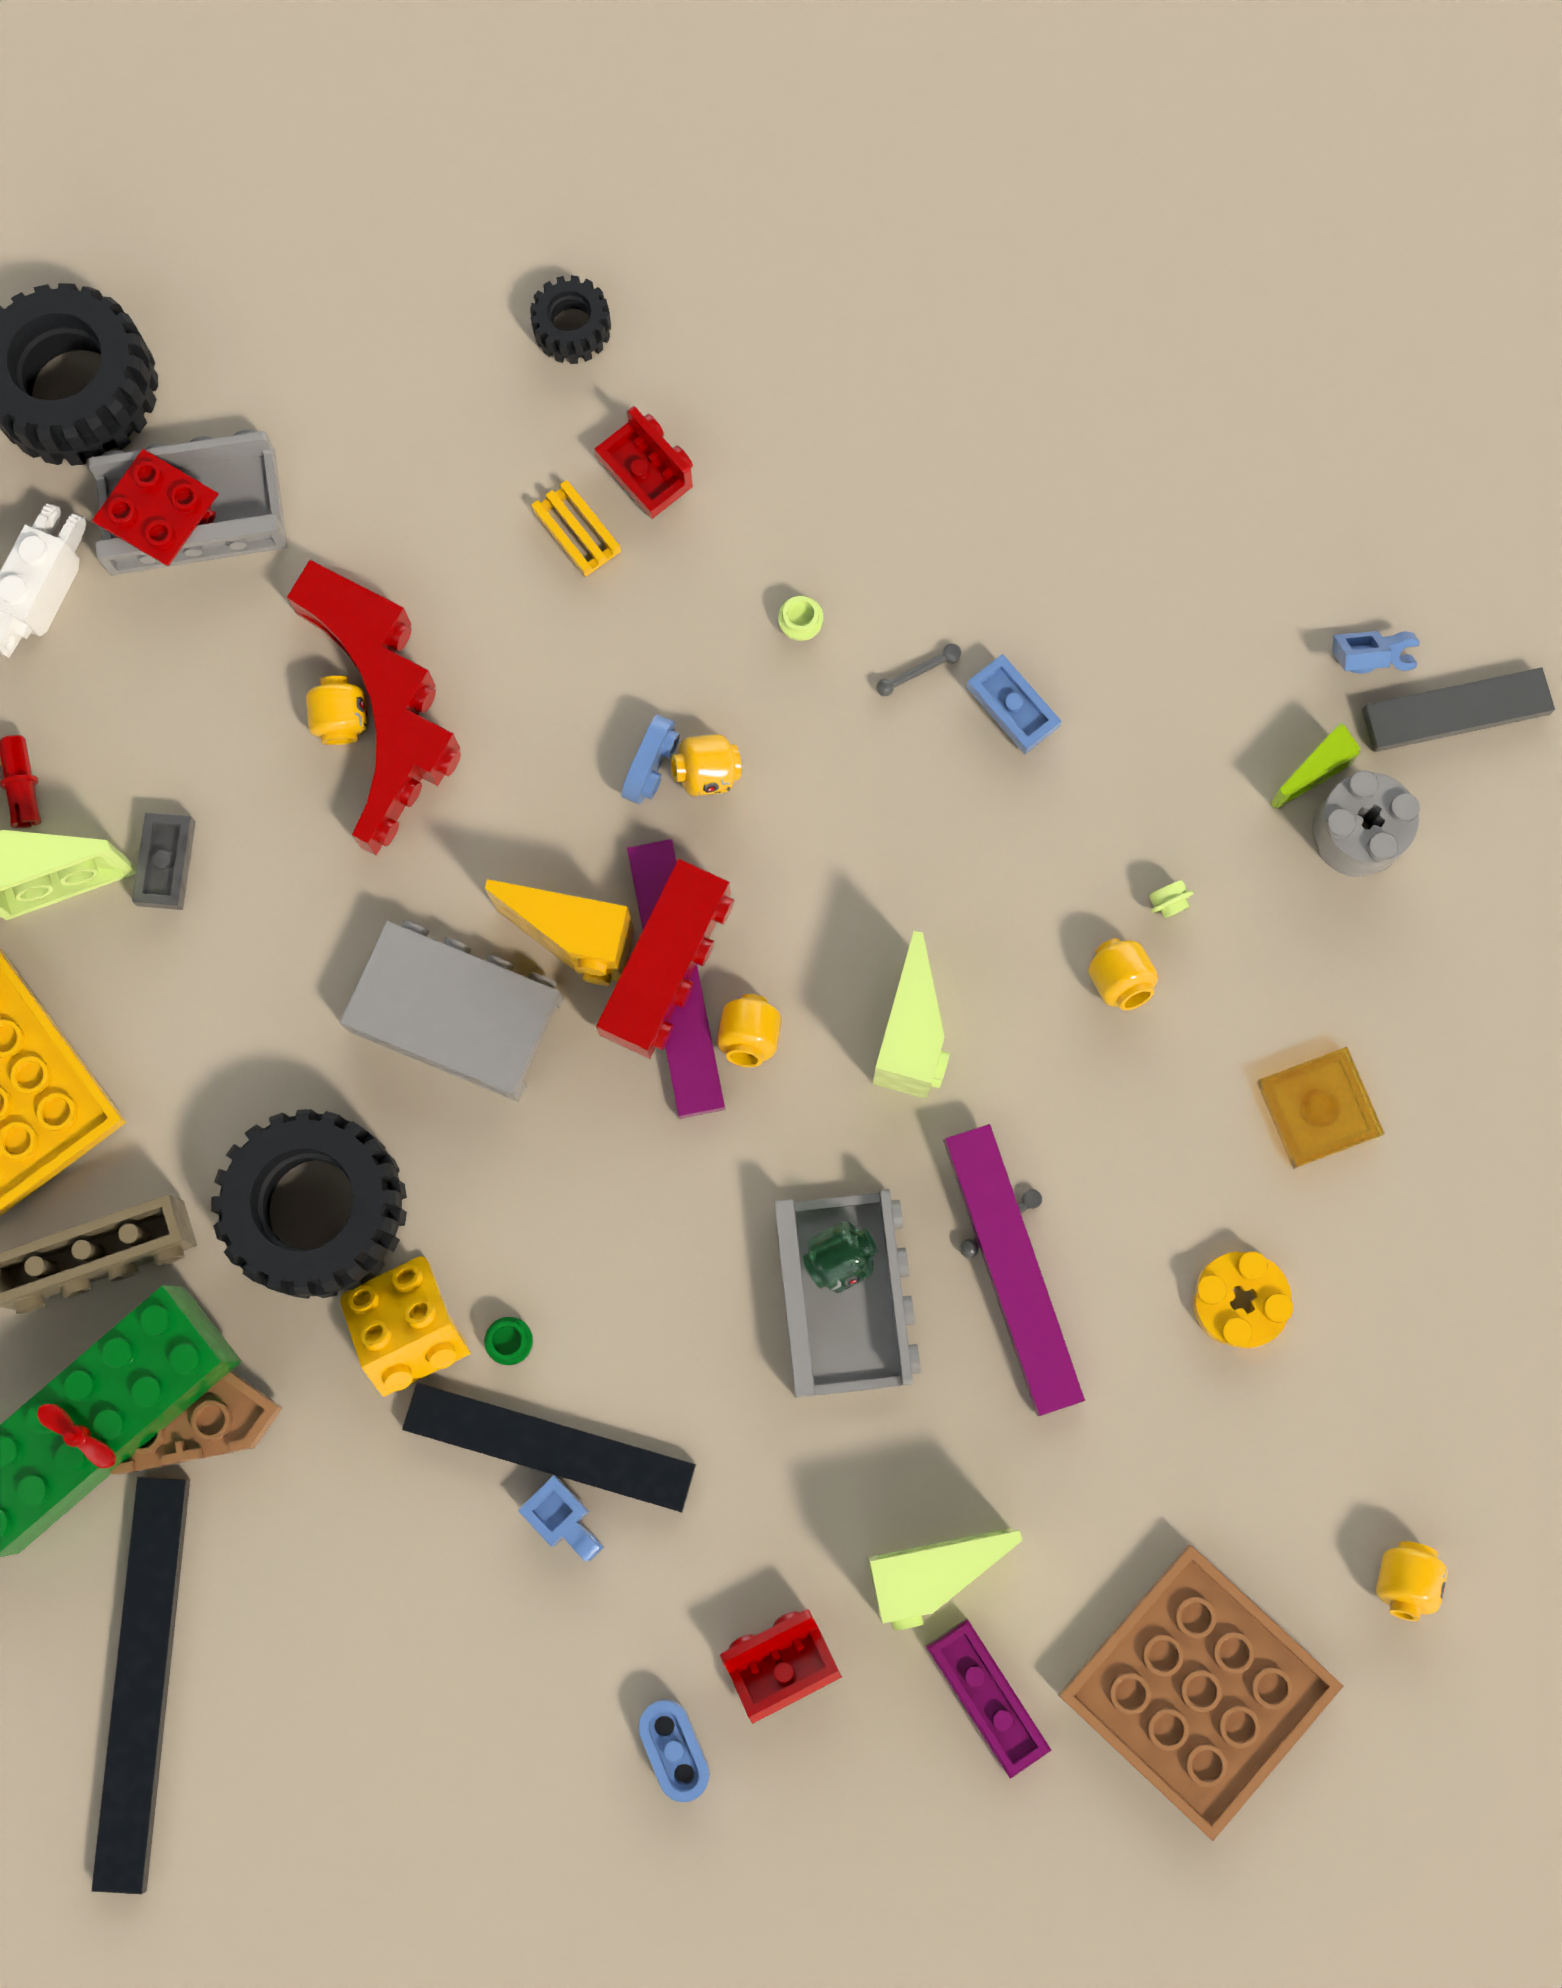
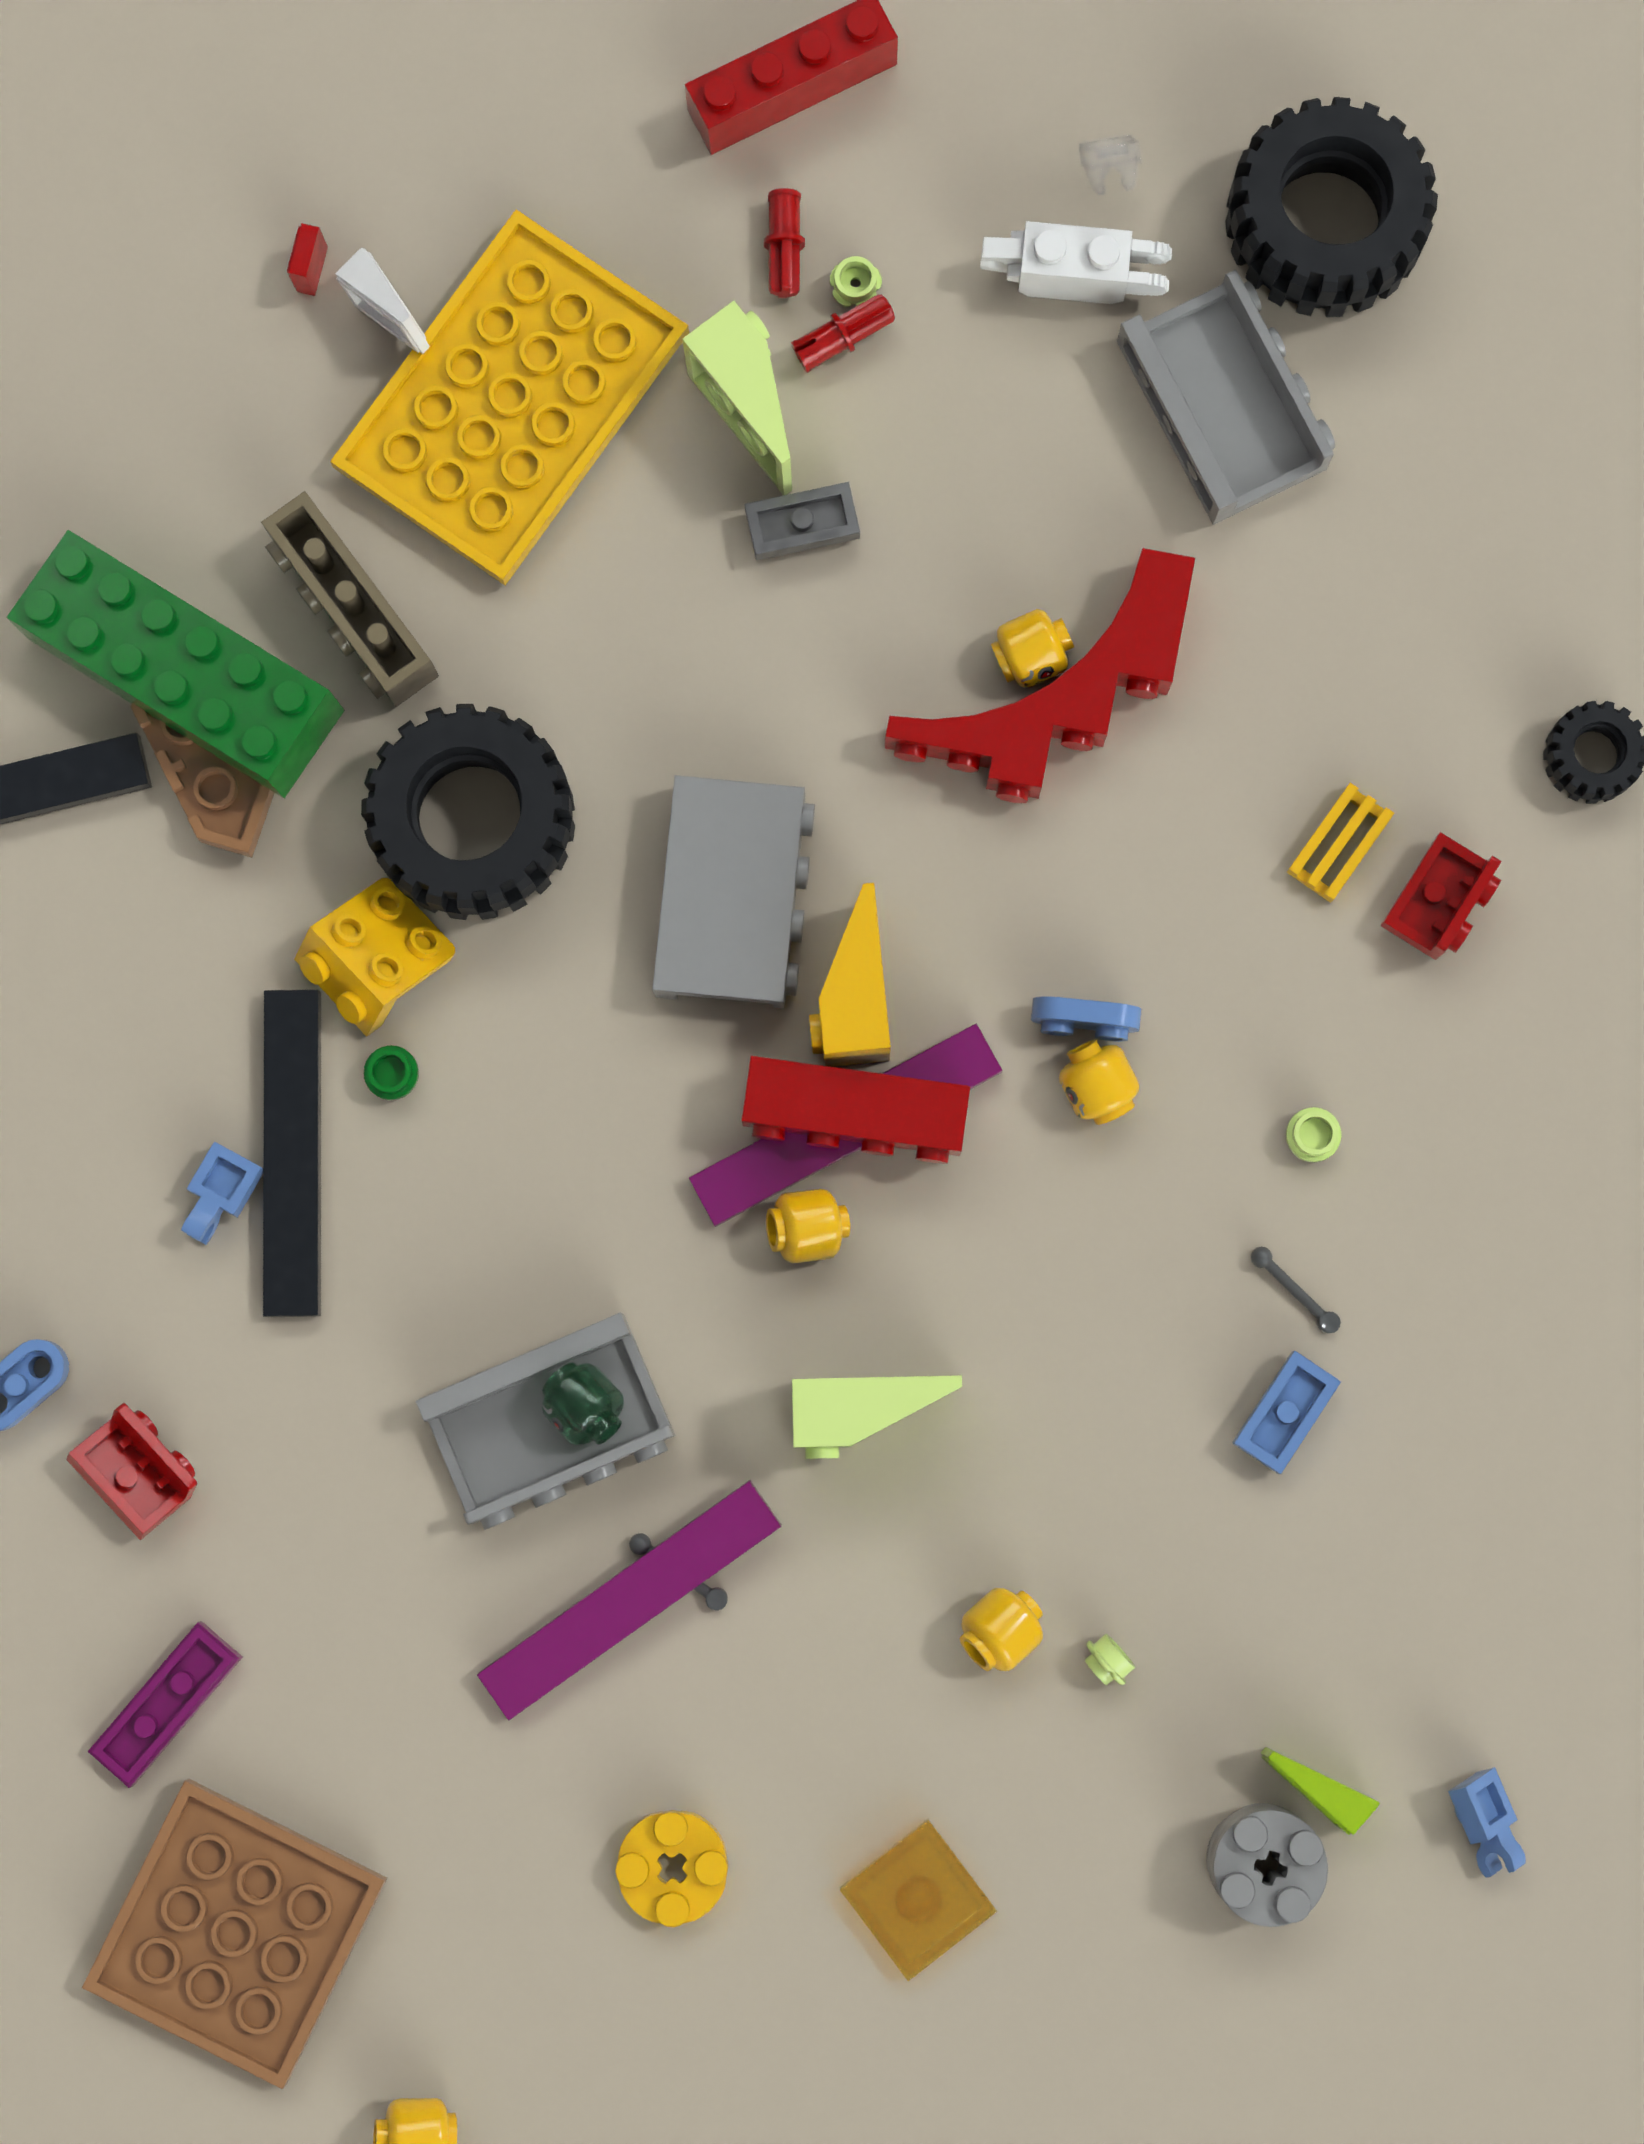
camera: 75 degrees right, 5 degrees up
(75, 1435) = (148, 658): red piece -> none
(156, 507) = (1200, 366): red hinge -> none
(928, 1576) = (267, 1601): yellowish green slope -> none
(1458, 709) = (1450, 1942): dark grey tile -> none

